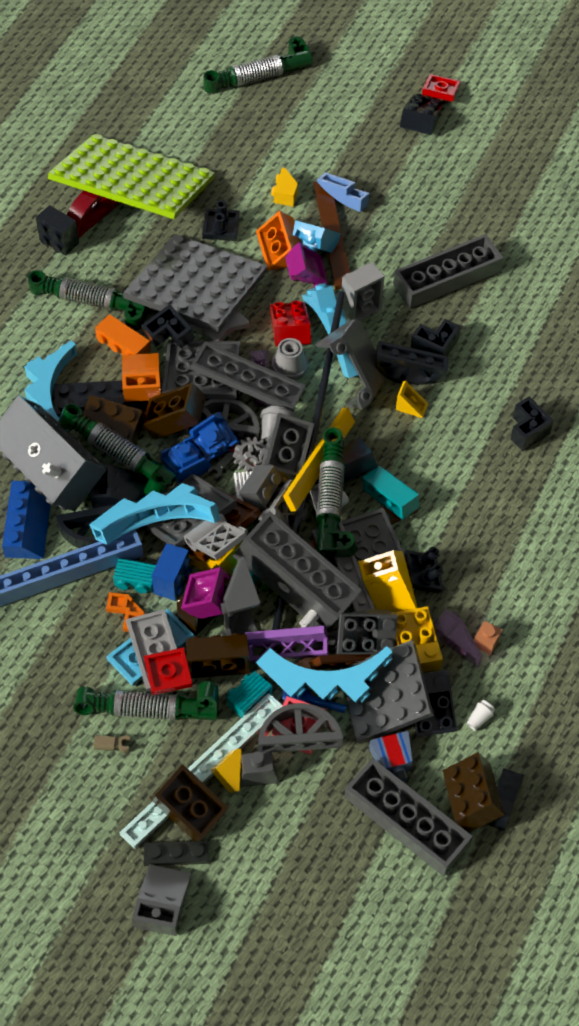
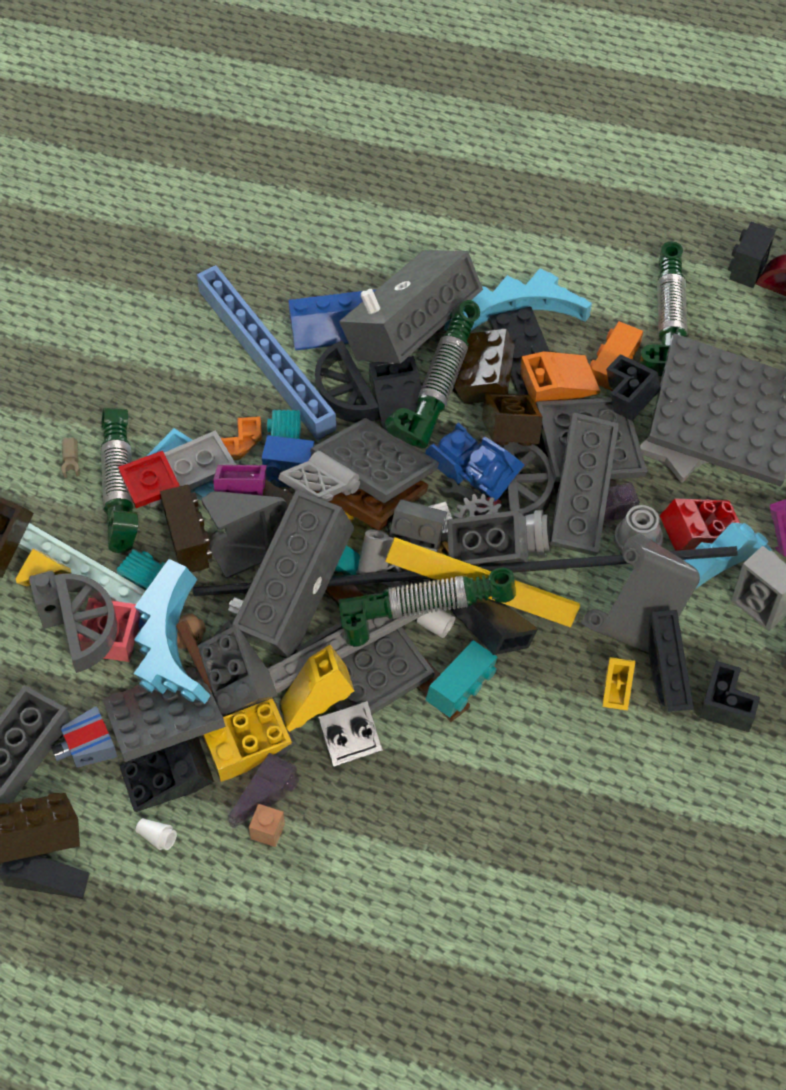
camera: 80 degrees right, 0 degrees up
(155, 507) = (358, 419): medium azure arch -> none
(289, 636) = (218, 599): medium lavender fence -> none
(531, 424) = (620, 842): black brick -> none

